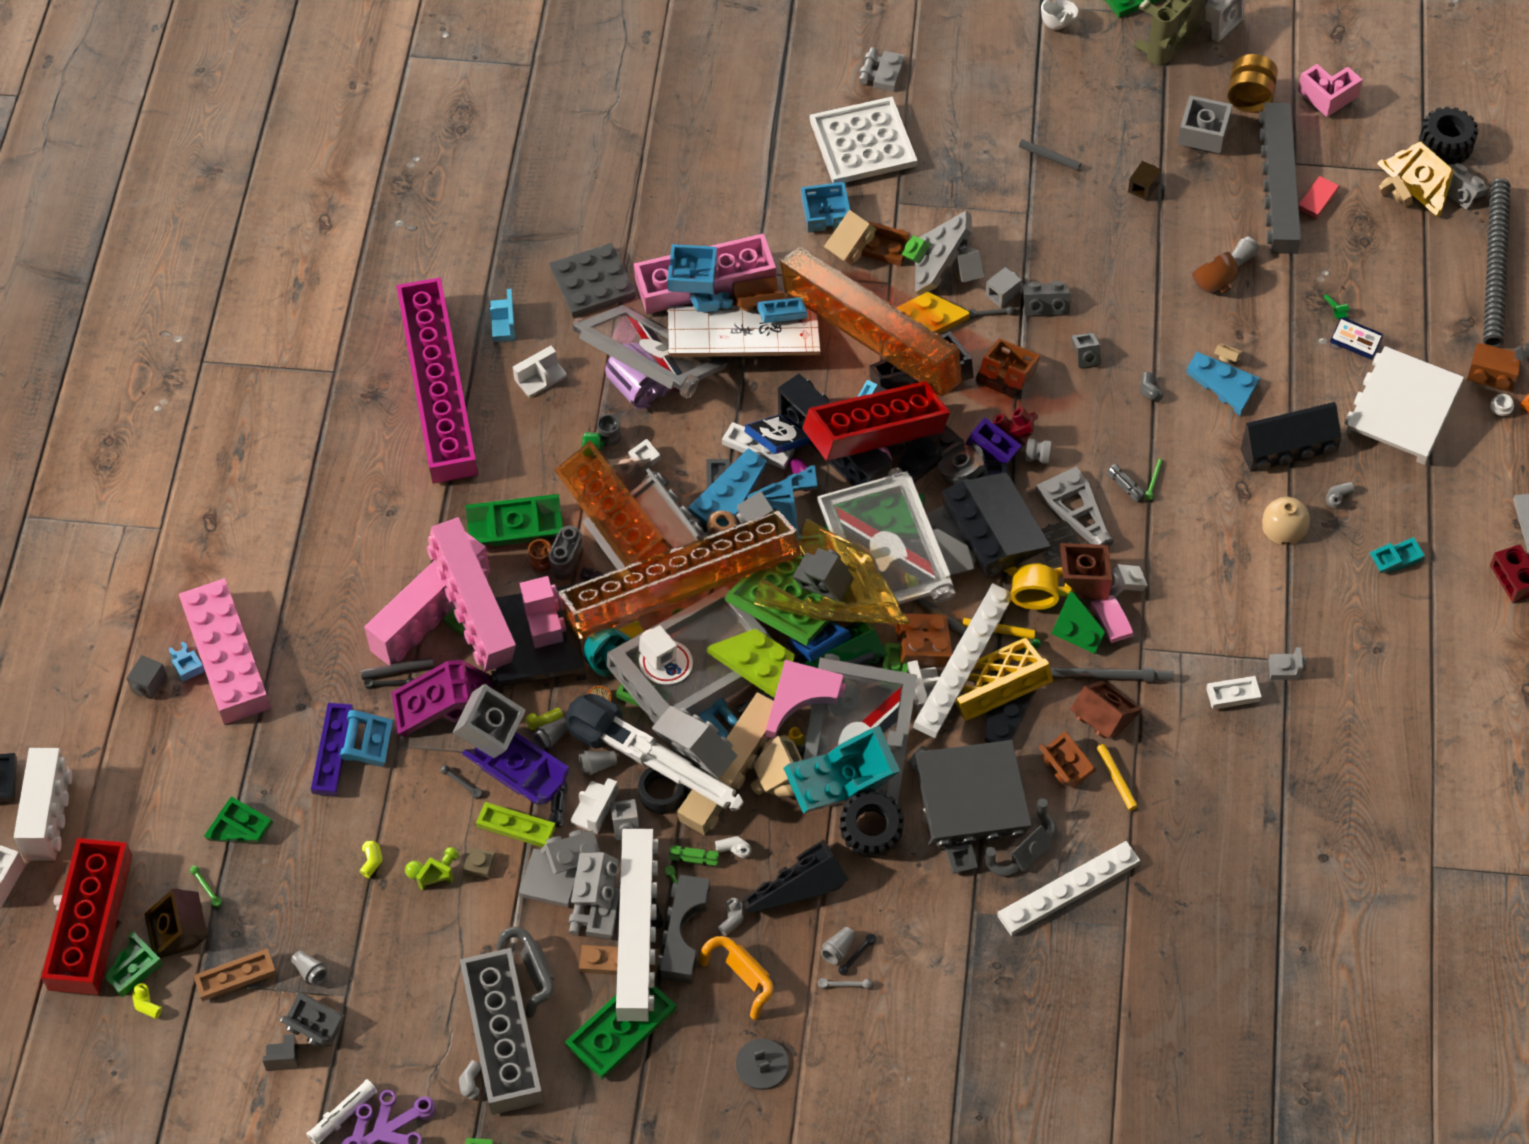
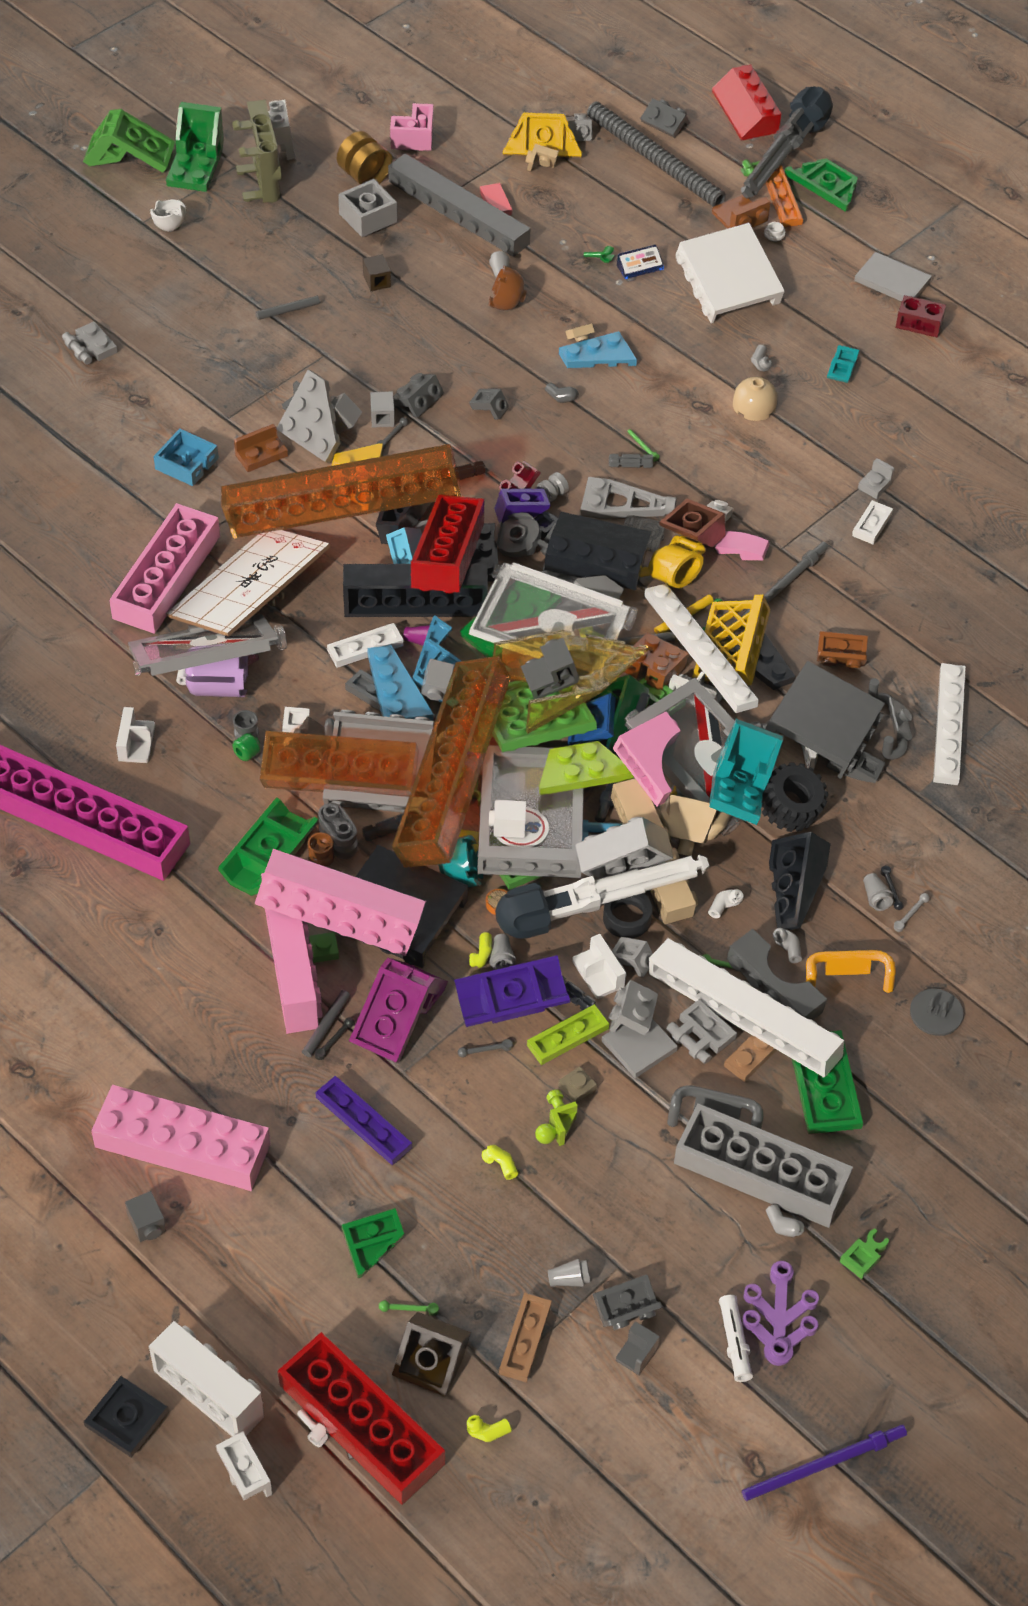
camera: 55 degrees left, 5 degrees down
(132, 965) = (441, 1414): green wing -> none
(186, 663) = (162, 1178): dark azure plate -> none
(374, 741) = (385, 1081): dark azure plate -> none
(489, 721) = (469, 975): light grey brick -> none
(503, 319) = (52, 723): medium azure panel -> none
(541, 610) = (389, 869): bright pink brick -> none
(592, 280) = (79, 645): dark grey plate -> none
(595, 761) = (559, 940): light grey cone -> none
(595, 880) = (681, 1006): light grey bracket -> none
(692, 262) = (173, 556): dark azure piece -> none
(694, 855) = (709, 933): bright green axle -> none
(711, 302) = (195, 583): dark azure plate -> none
(714, 528) = (432, 713): medium nougat piece -> none
(750, 292) = (223, 549): dark orange bracket -> none
(777, 434) = (371, 624): tile -> none
(782, 310) = (259, 543): dark azure plate -> none
(850, 238) = (237, 458): tan brick -> none
(863, 140) = (146, 397): white plate -> none
(915, 249) = (292, 431): bright green plate -> none
(1009, 366) = (472, 450): dark orange piece -> none
(1078, 625) = (732, 565): green wing -> none
(1104, 709) = (819, 600): copper slope -> none
(1117, 777) = (880, 634): yellow bar -> none
(1291, 437) = (694, 347): black slope -> none
(1450, 123) = (521, 97): black tyre -> none

